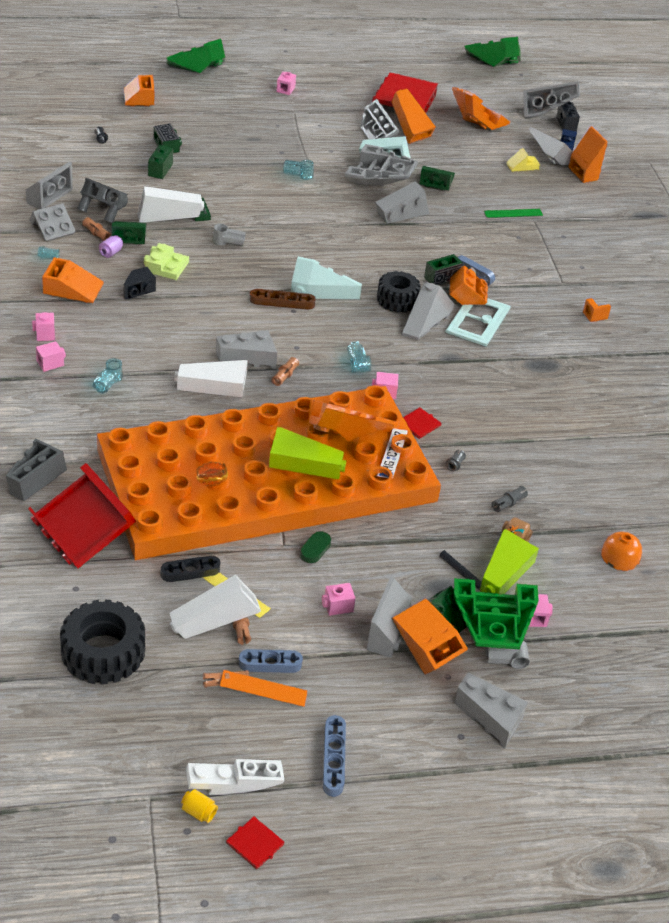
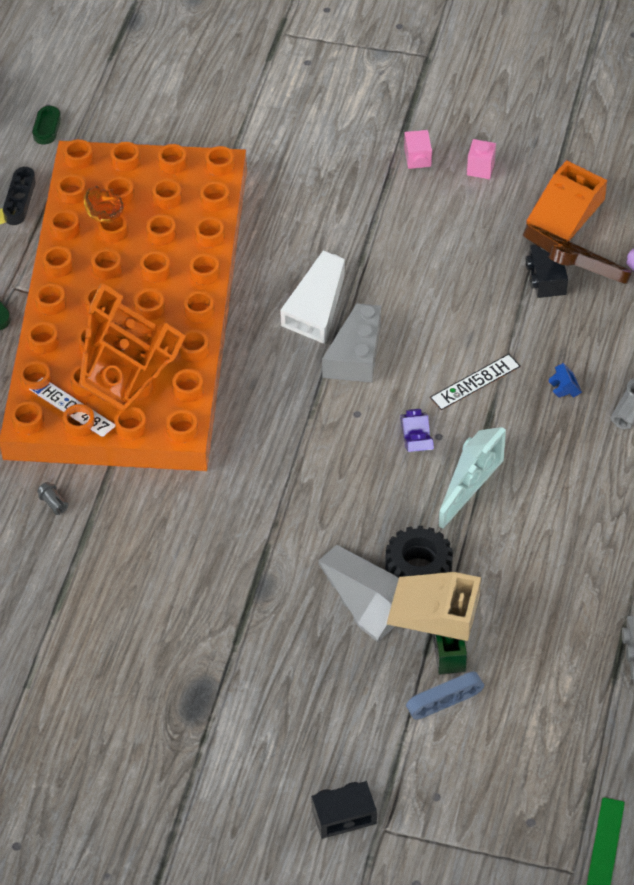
camera: 120 degrees right, 10 degrees up
(35, 470) = (223, 98): dark grey wedge -> none
(83, 518) = (123, 111): red panel -> none
(101, 579) = (46, 125): none -> dark green tile
(109, 376) = (365, 199): clear light blue piece -> none
(120, 269) = (570, 254): none -> reddish brown beam
(165, 262) = (593, 318): yellowish green plate -> none
(226, 261) = (567, 382): none -> blue tile
(242, 304) = (475, 381): none -> sticker
(264, 296) = (458, 424): reddish brown beam -> none
(280, 377) = (304, 378): nougat pin -> none
(293, 318) = (416, 430): none -> slope
(305, 455) = (70, 312): lime slope -> none
(358, 360) = (287, 462): clear light blue piece -> none
(389, 380) = (218, 467): bright pink brick -> none
(421, 422) = (146, 494): red piece -> none
(437, 258) = (436, 604): none -> tan slope
(468, 288) = (394, 661): orange slope -> none
(493, 323) = (312, 674): light aqua door -> none
(570, 288) = (344, 809): none -> black brick
(595, 312) = (283, 830): orange panel -> none

